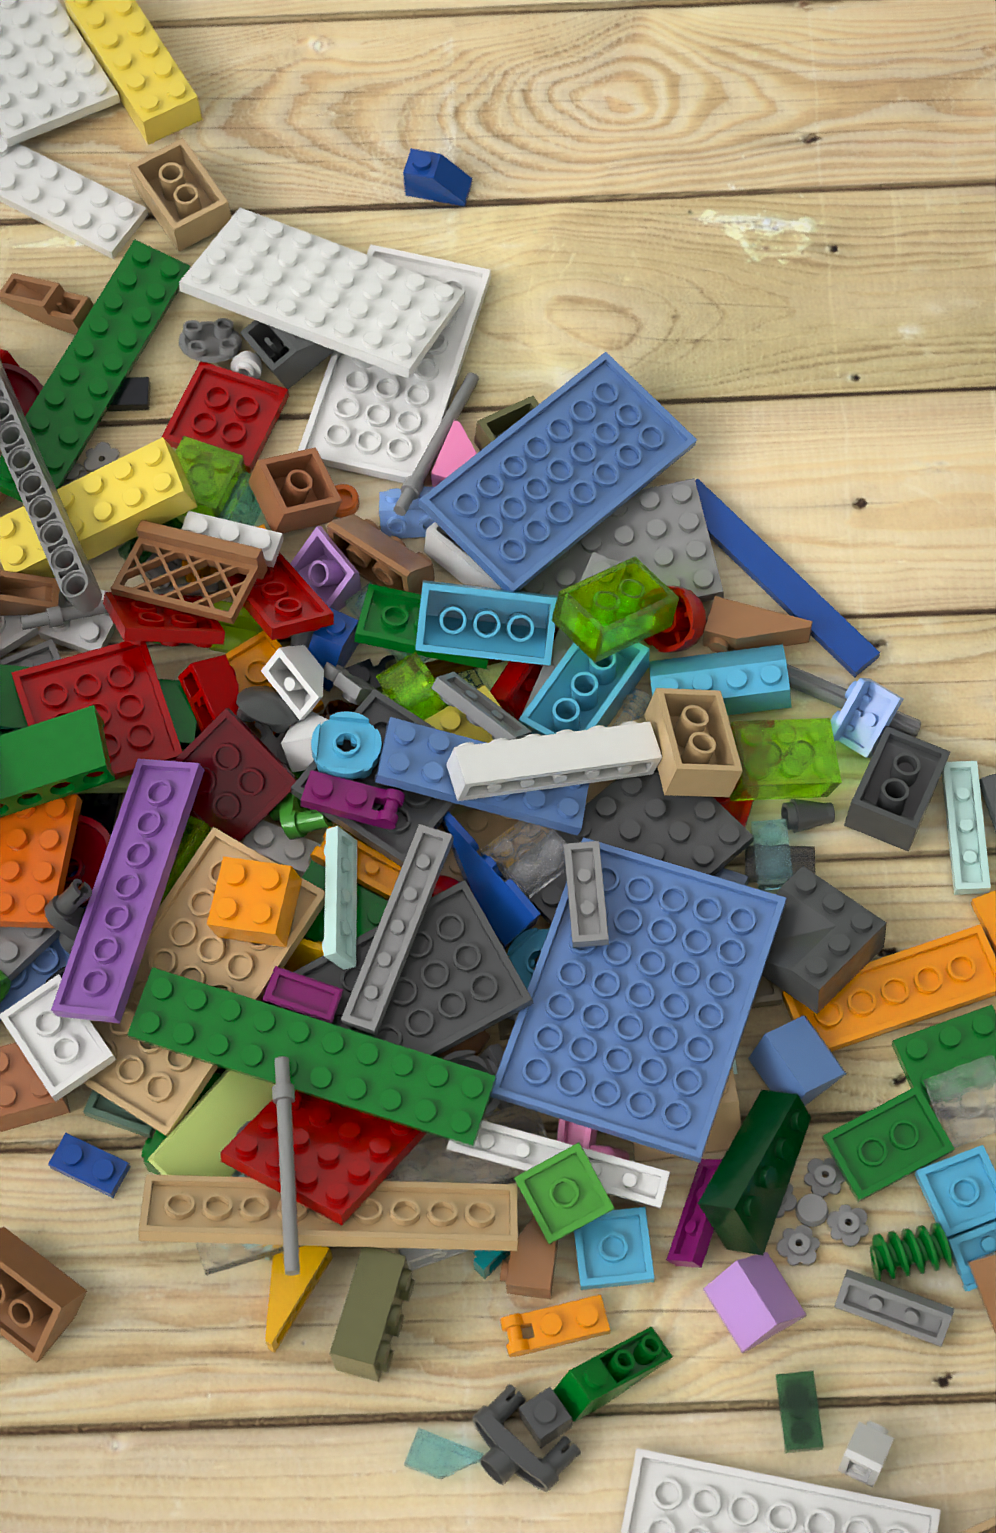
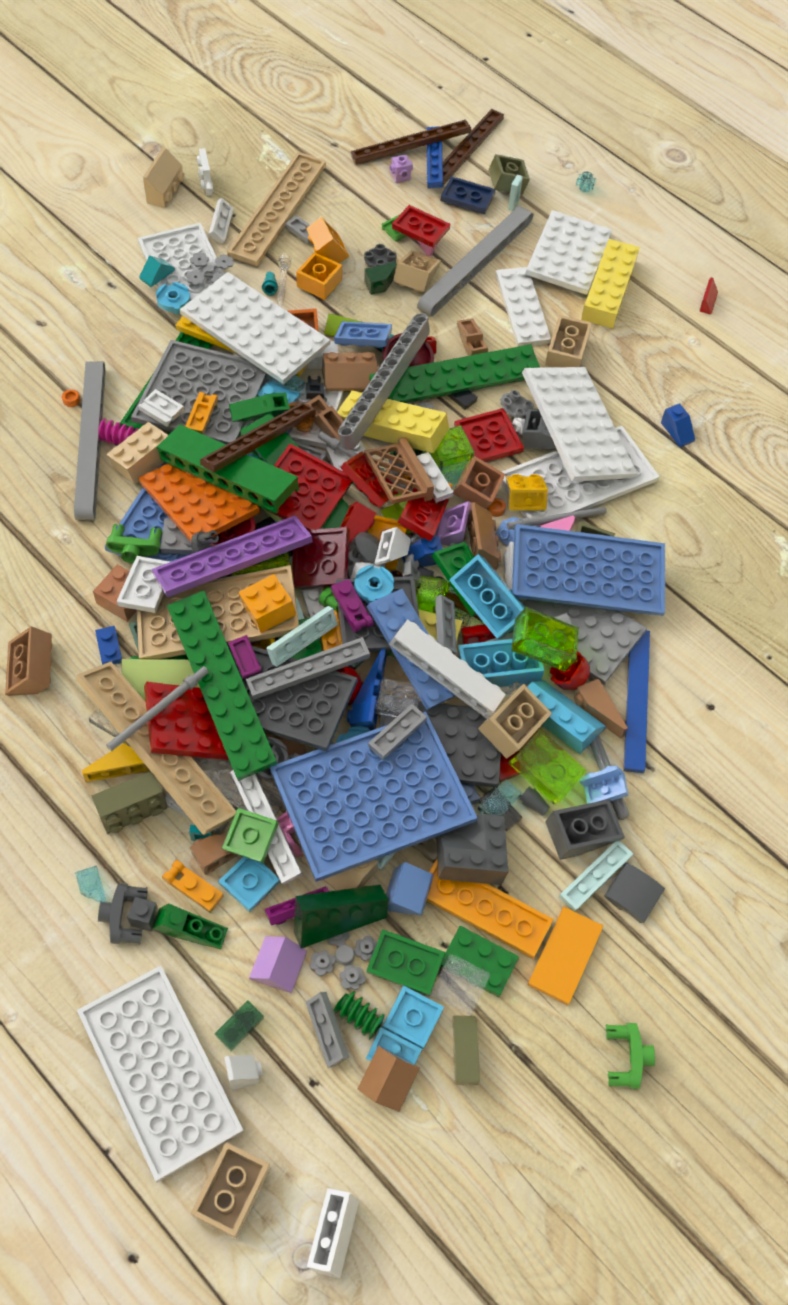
camera: 40 degrees right, 5 degrees down
(367, 443) = (527, 492): none -> yellow bracket

